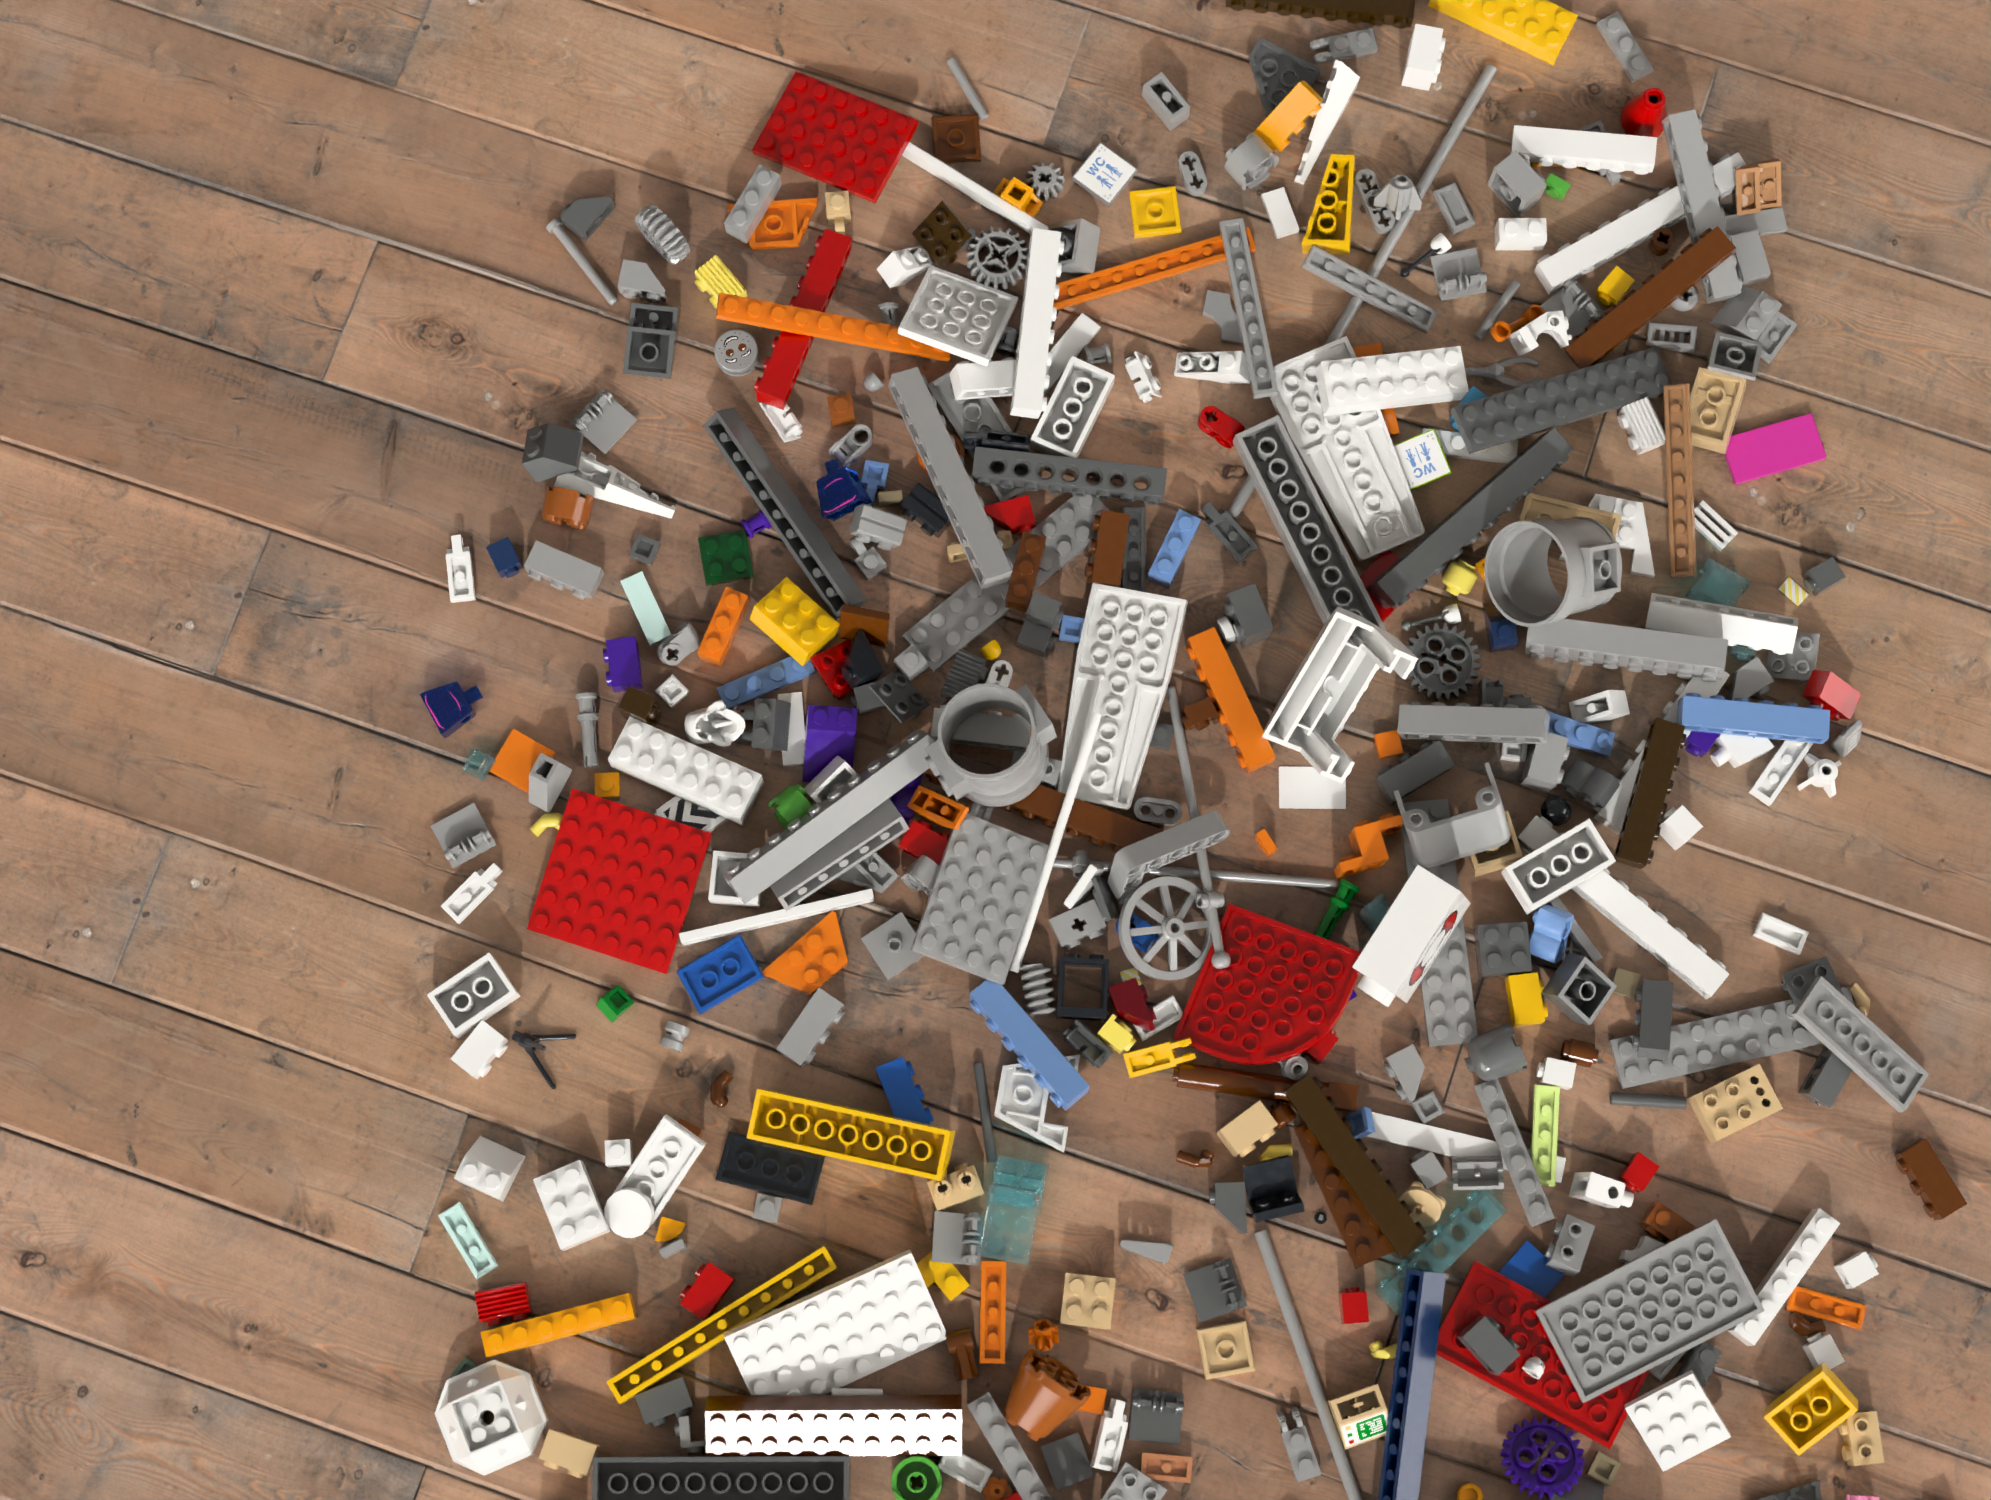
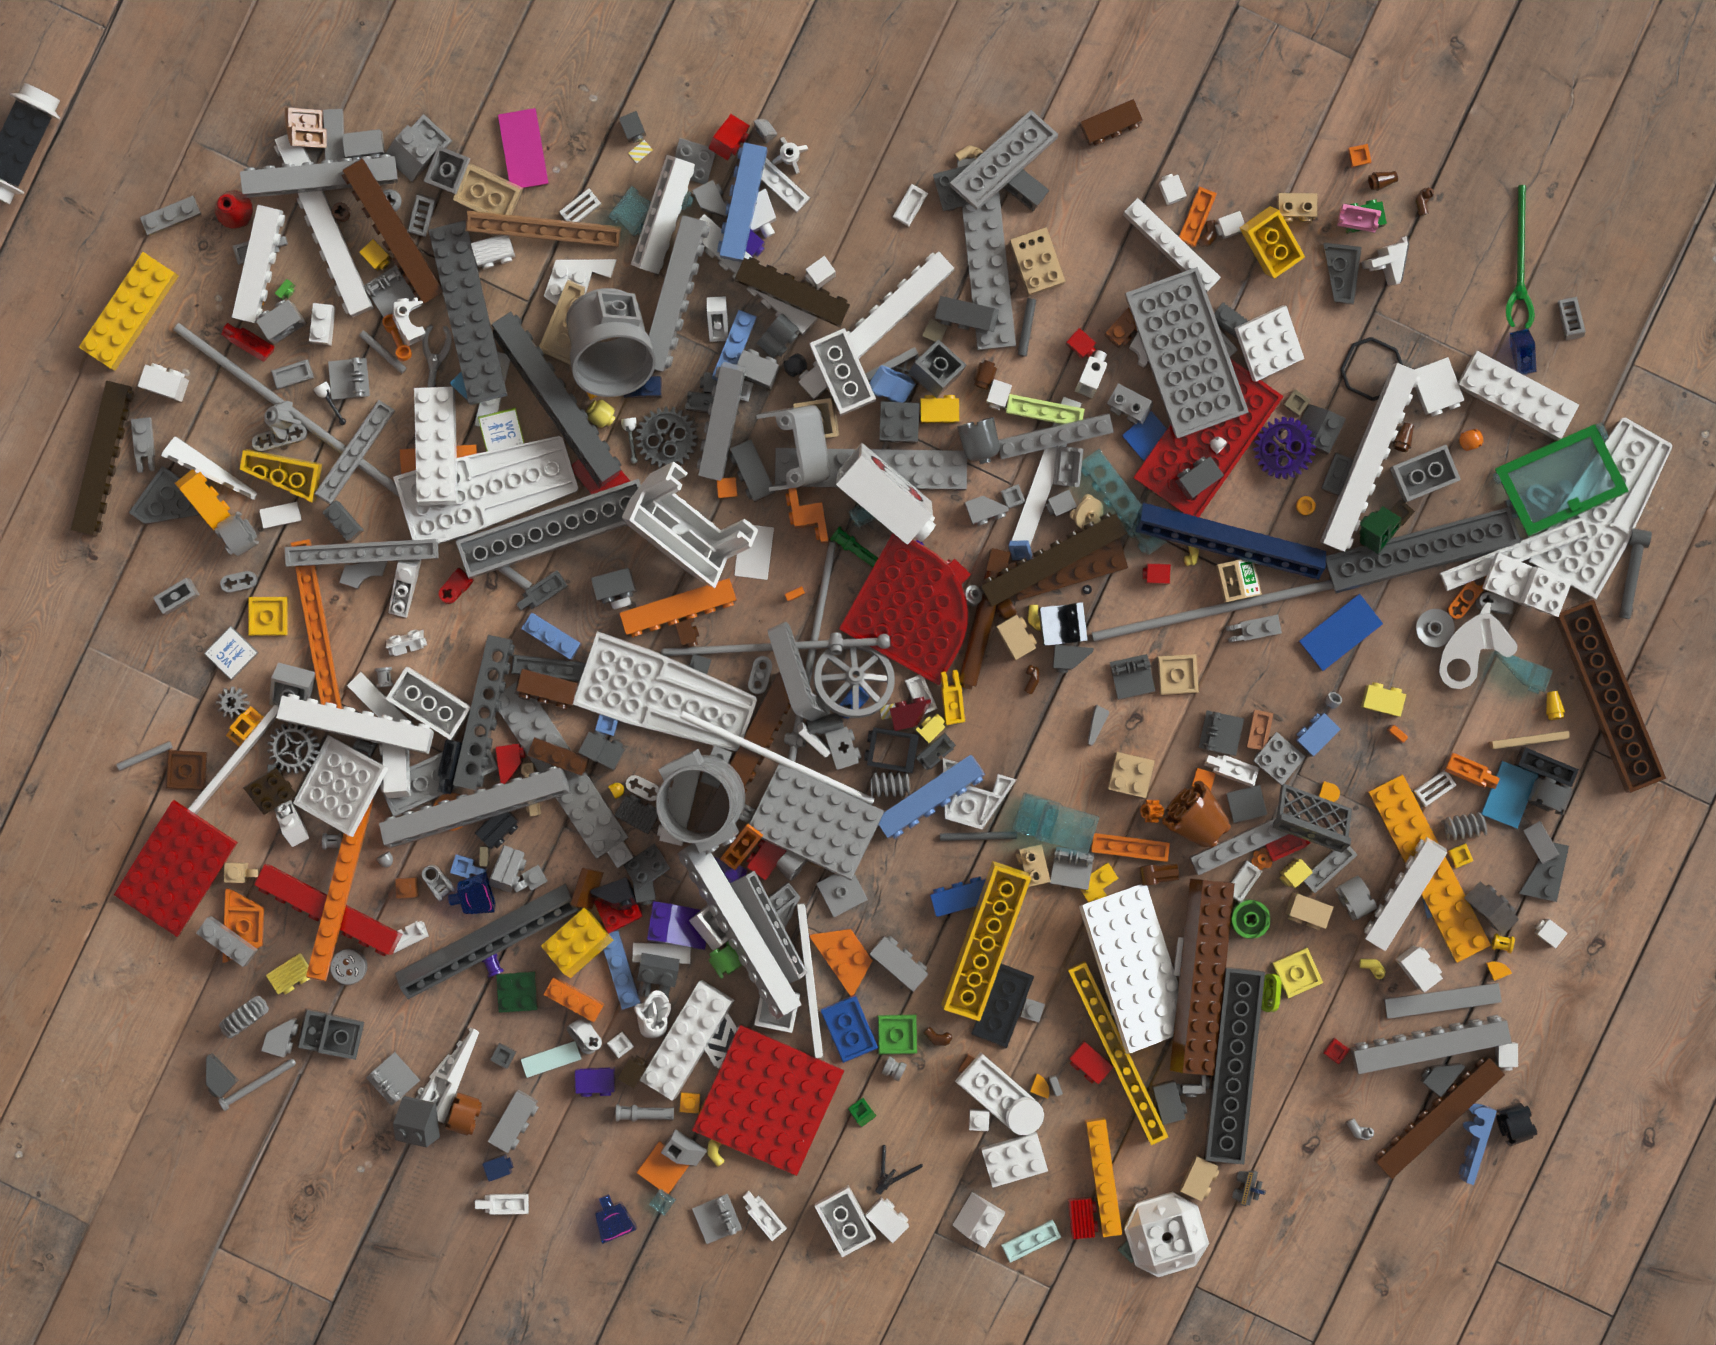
camera: 80 degrees left, 10 degrees up
(719, 1037) = (897, 1034): none -> bright green tile
(1283, 285) = (343, 521): none -> dark grey brick
(1485, 151) = (248, 341): none -> red hinge

